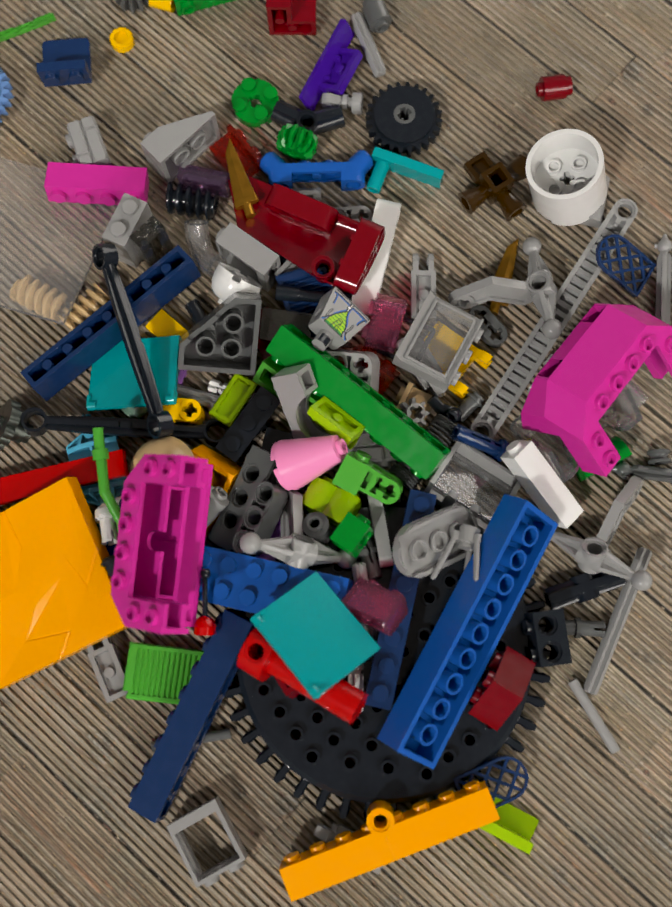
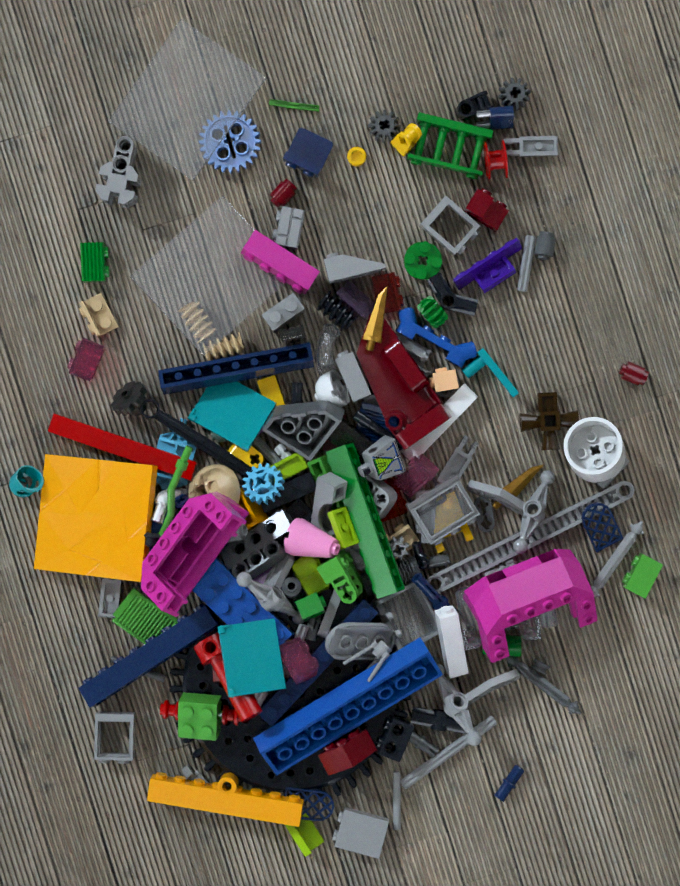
camera: 30 degrees right, 10 degrees up
(60, 114) = (283, 193): none -> dark red brick
(158, 421) = (255, 329): black piece -> none
(205, 624) = (188, 609): hinge -> none
(214, 428) = (263, 484): none -> medium azure gear
(258, 68) = (472, 234): none -> light grey window
(295, 751) = (199, 715): none -> bright green brick
(354, 102) = (490, 303): light grey piece -> none
(354, 202) = (443, 380): none -> light nougat brick
(420, 118) = (524, 347): black gear -> none
(576, 781) = (360, 832): none -> light grey brick

